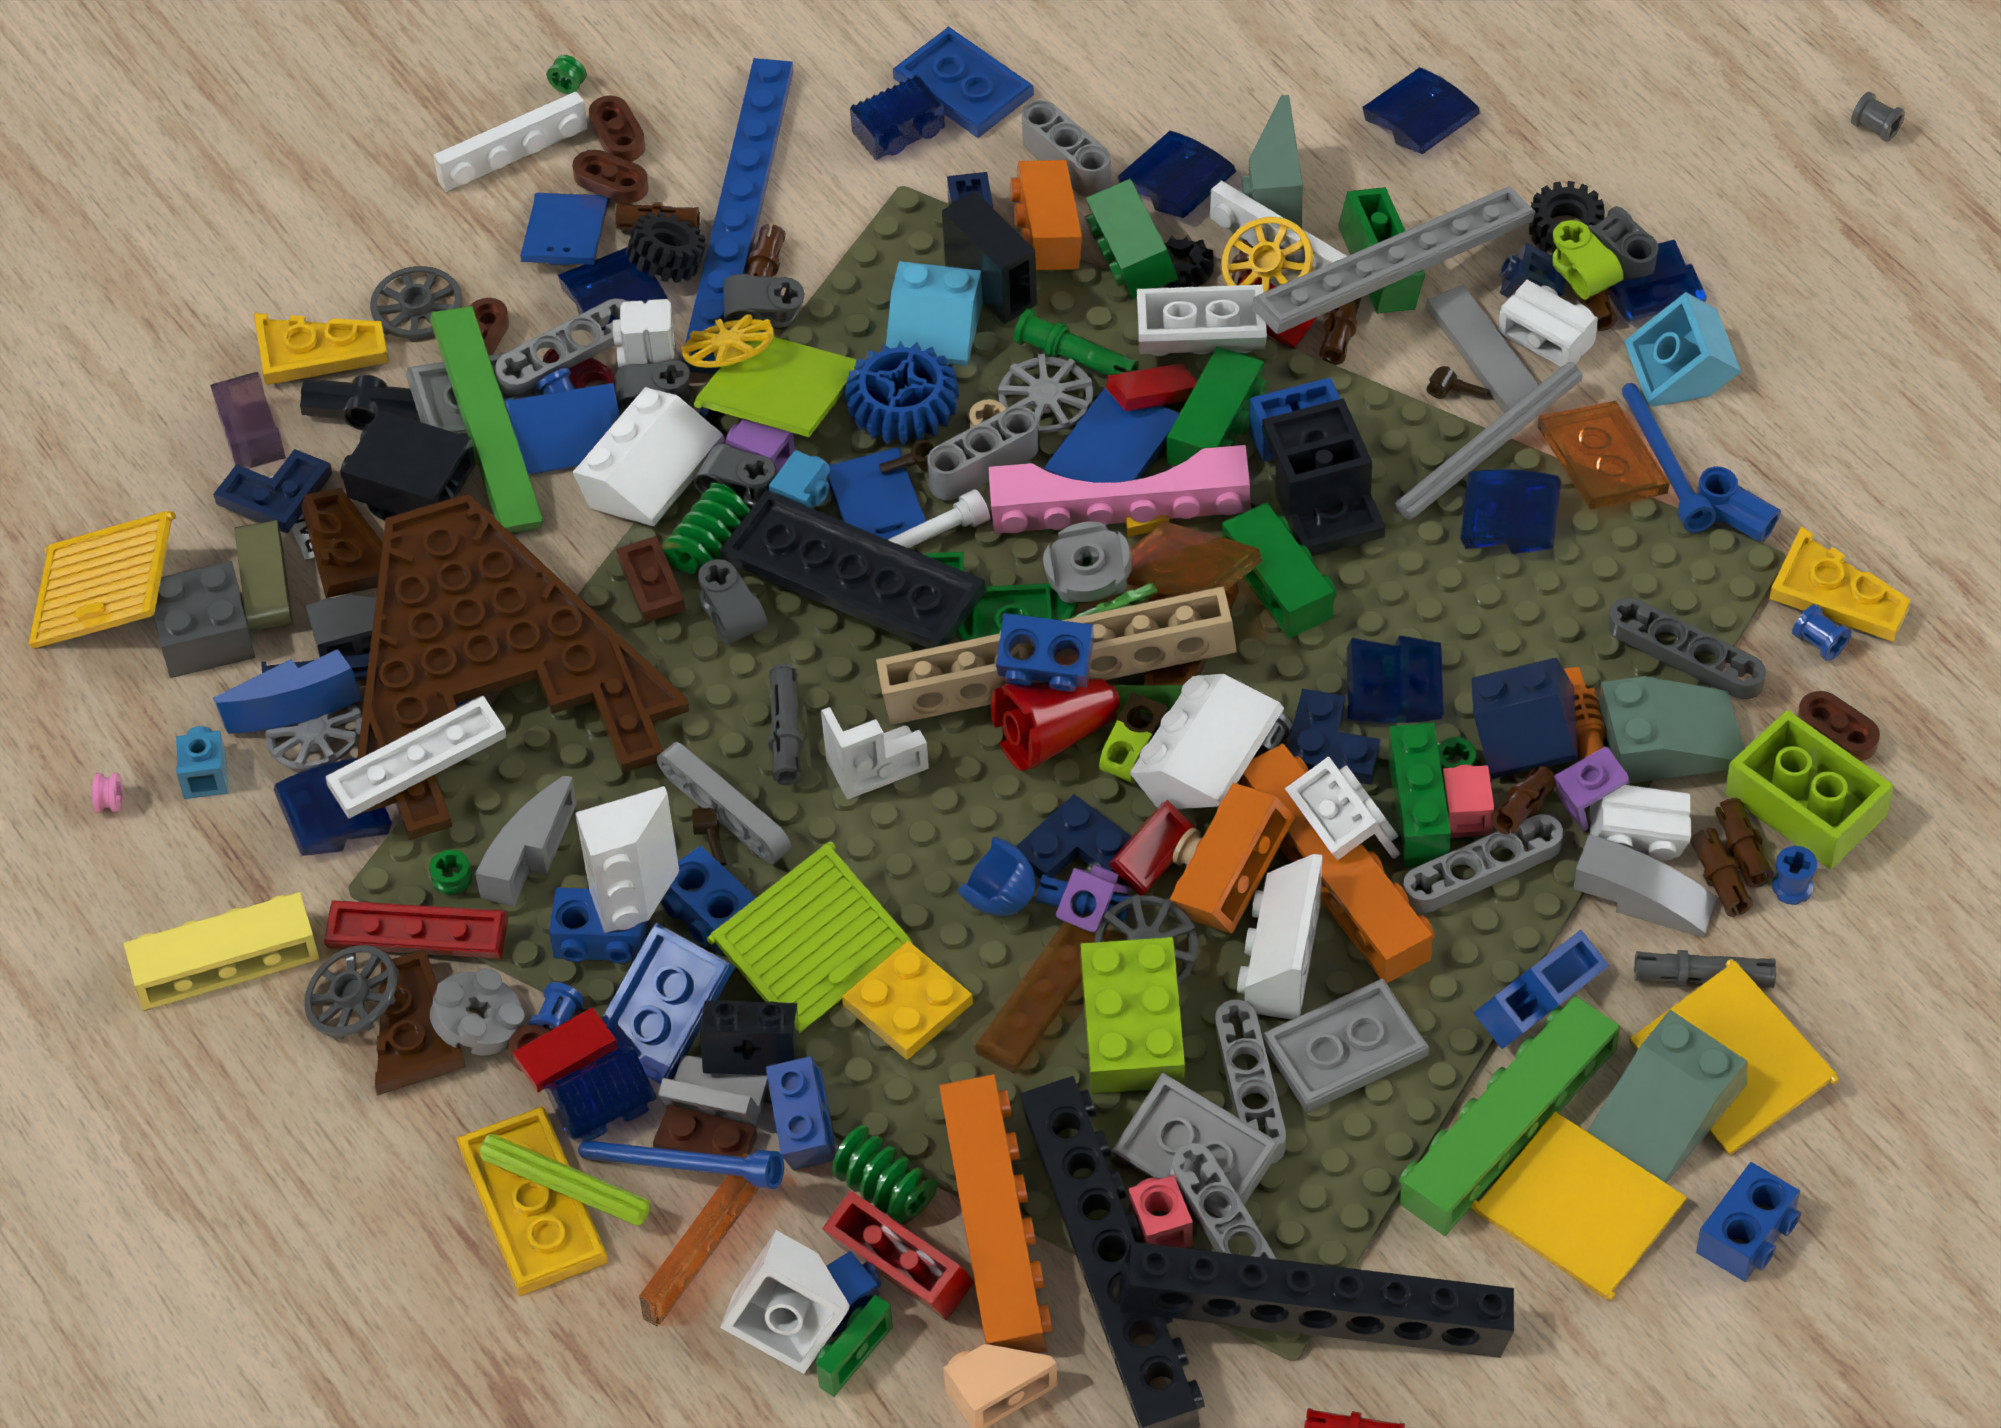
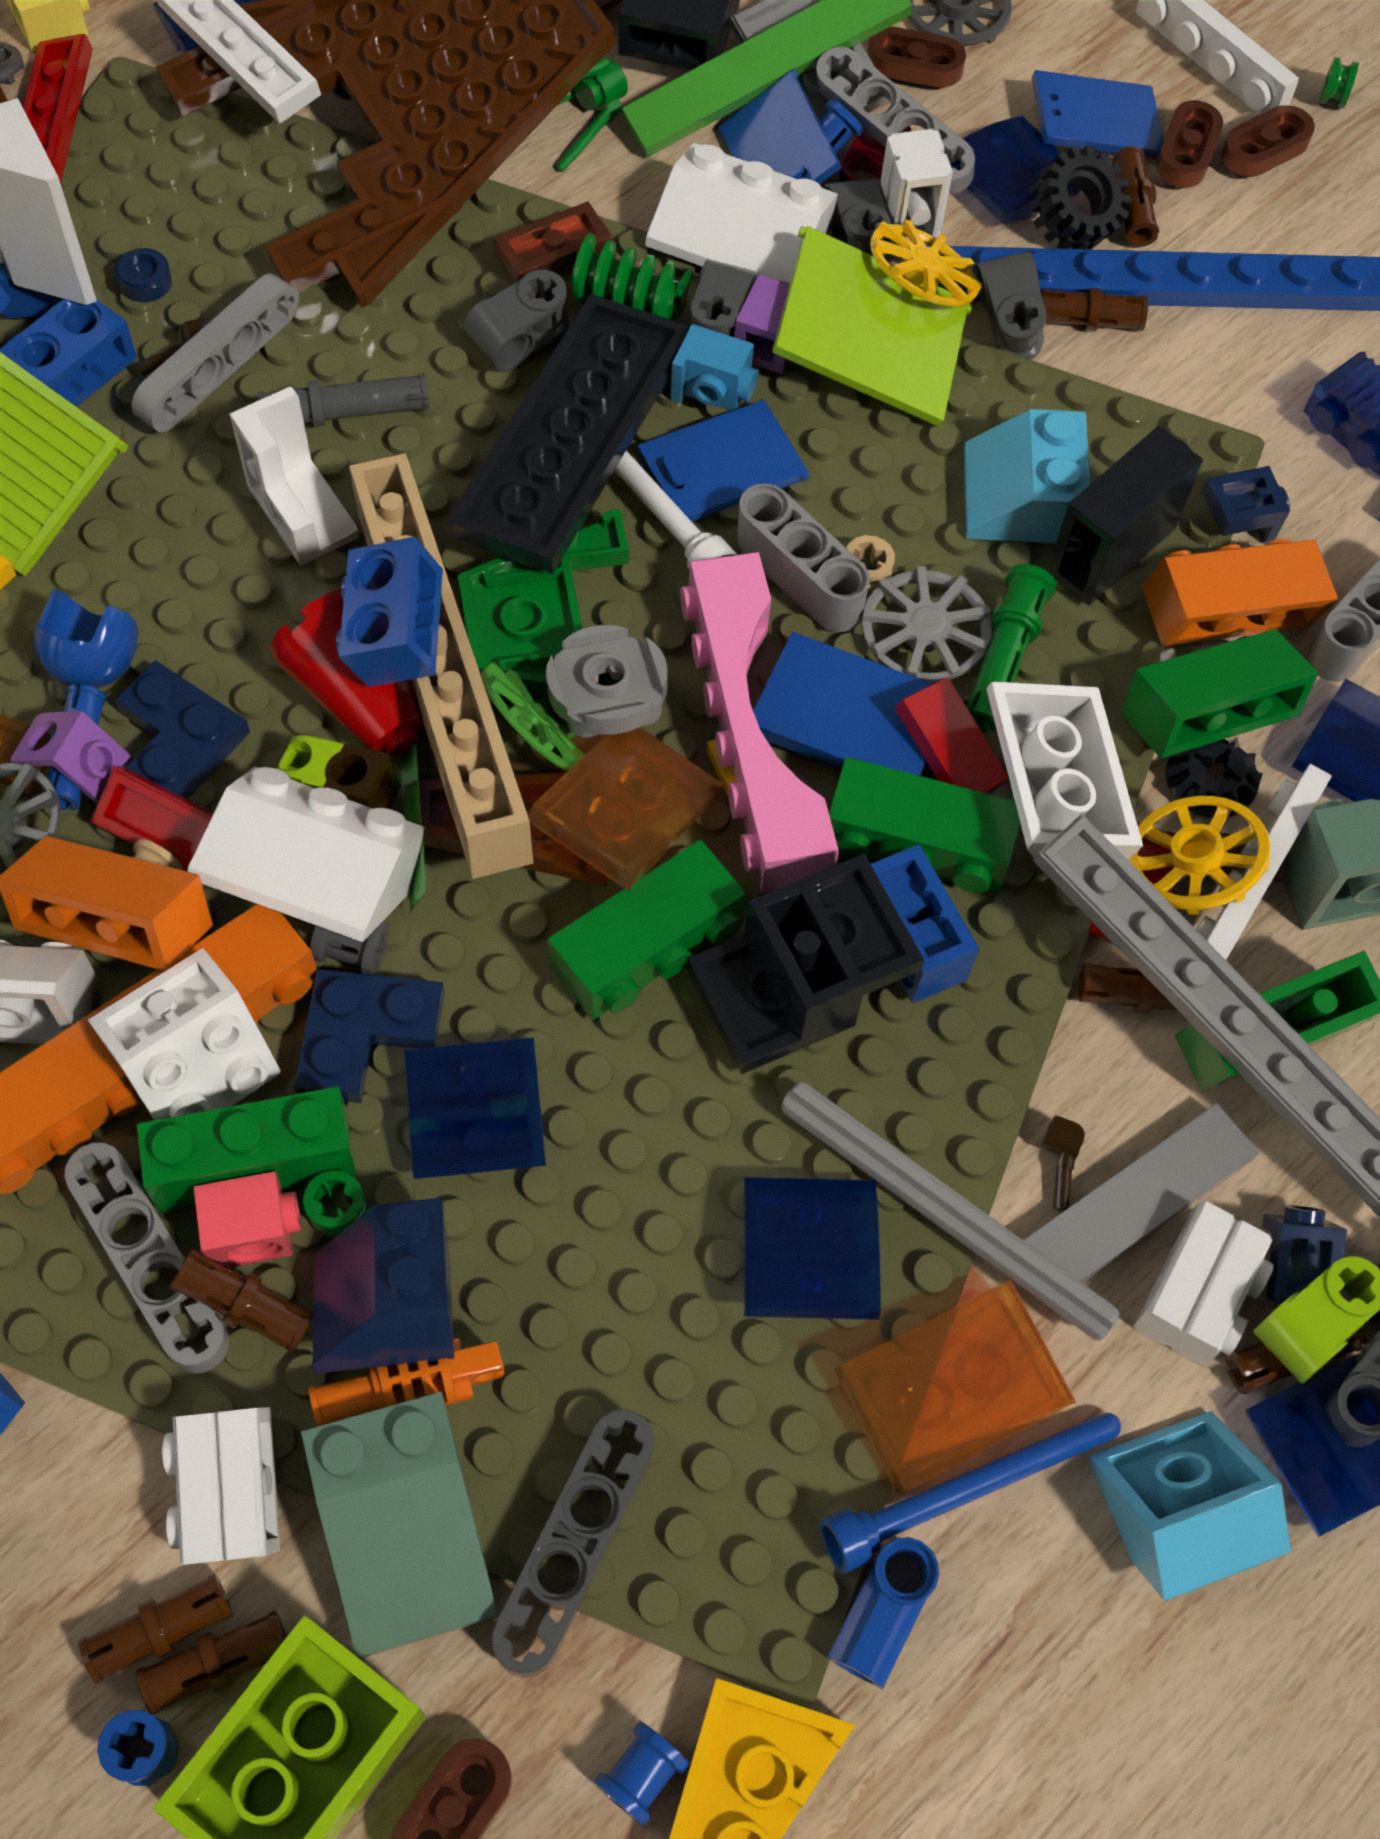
camera: 75 degrees right, 10 degrees up
(450, 859) = (116, 112): green bush -> none
(526, 843) = (151, 177): light grey slope -> none
(902, 393) = (922, 459): blue gear -> none
(917, 456) = (794, 487): dark brown hand -> none
(1589, 782) = (252, 1391): medium lavender bracket -> none
(1643, 886) = (111, 1505): light grey slope -> none

